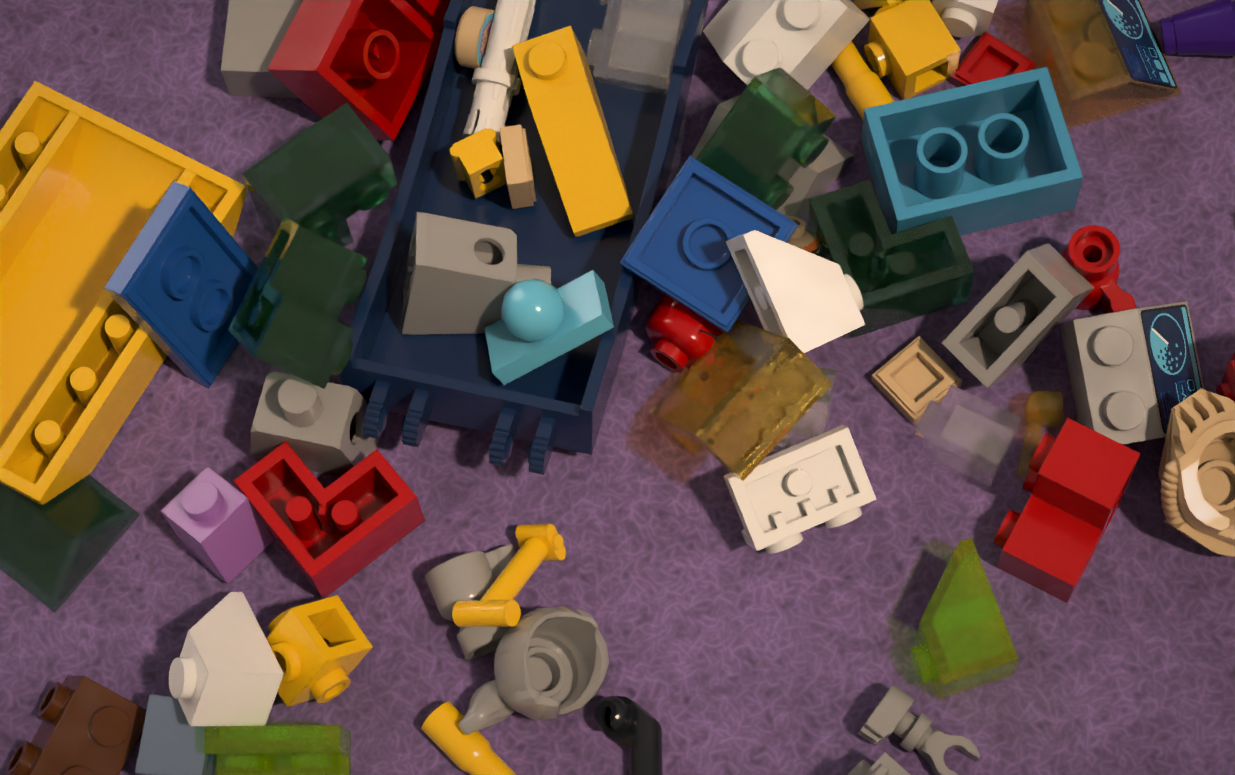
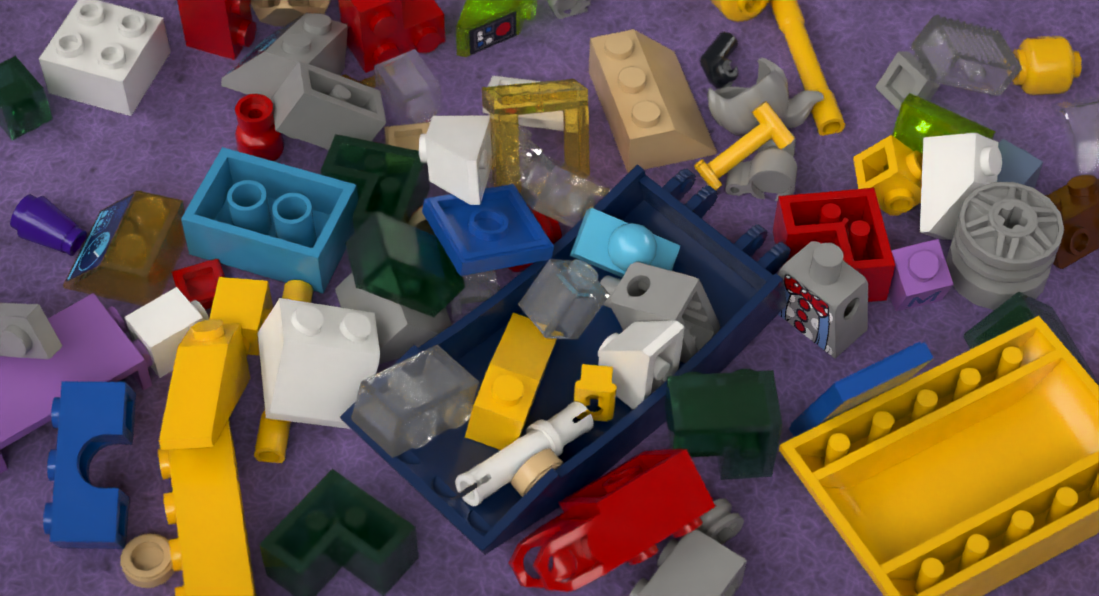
camera: 155 degrees left, 15 degrees down
(133, 652) = (1004, 243): none -> light grey wheel
(280, 118) = (720, 523): none -> light grey bush
(297, 302) = (804, 313): clear green brick -> none
(448, 191) = (642, 358): none -> white slope
(518, 166) = (568, 373): tan tile -> none
(577, 235) = (564, 298): none -> clear brick
(660, 361) = (561, 190): none -> clear slope
(675, 605) = (647, 101): none -> tan slope

